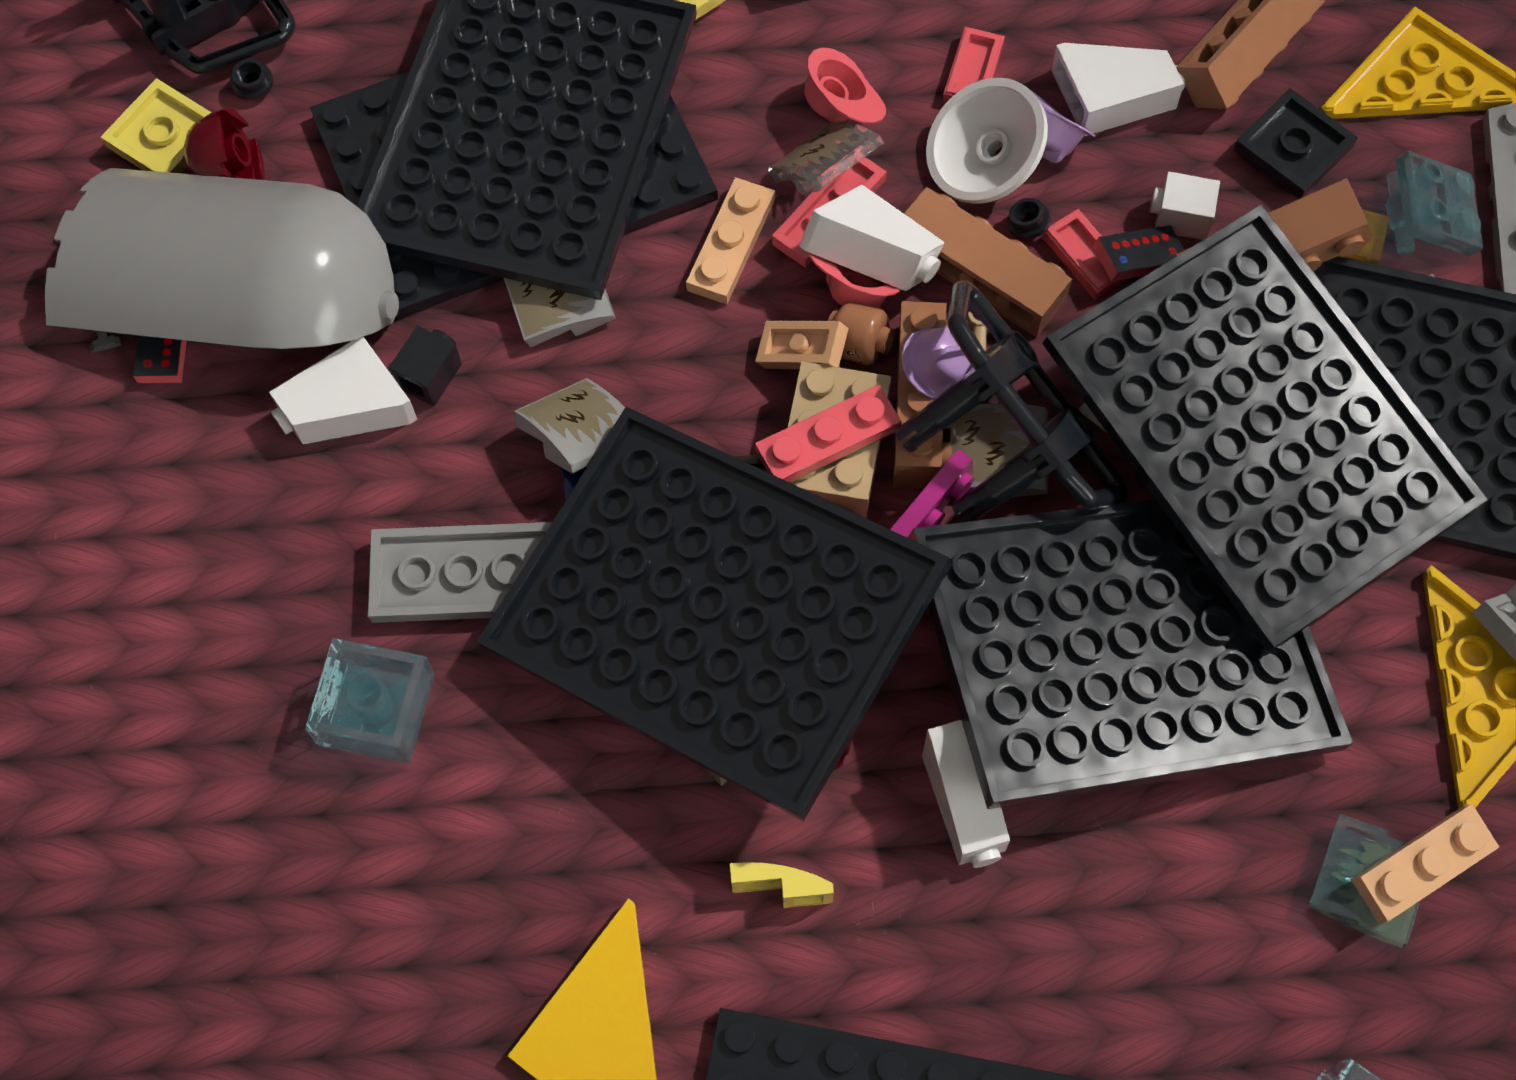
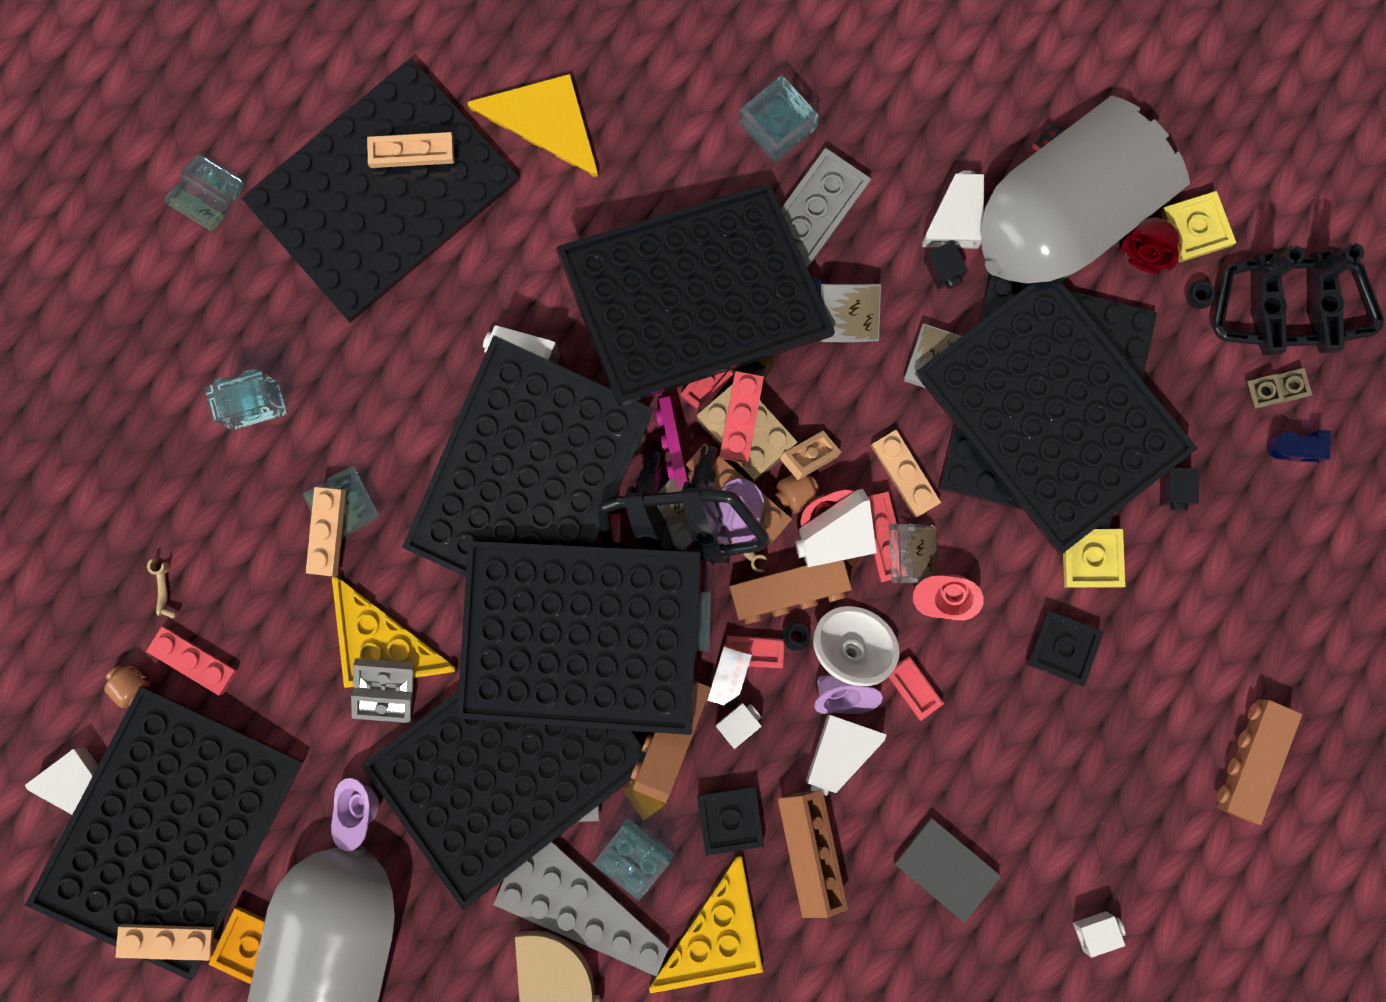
camera: 130 degrees right, 15 degrees up
(797, 886) = (545, 246): light yellow slope -> none

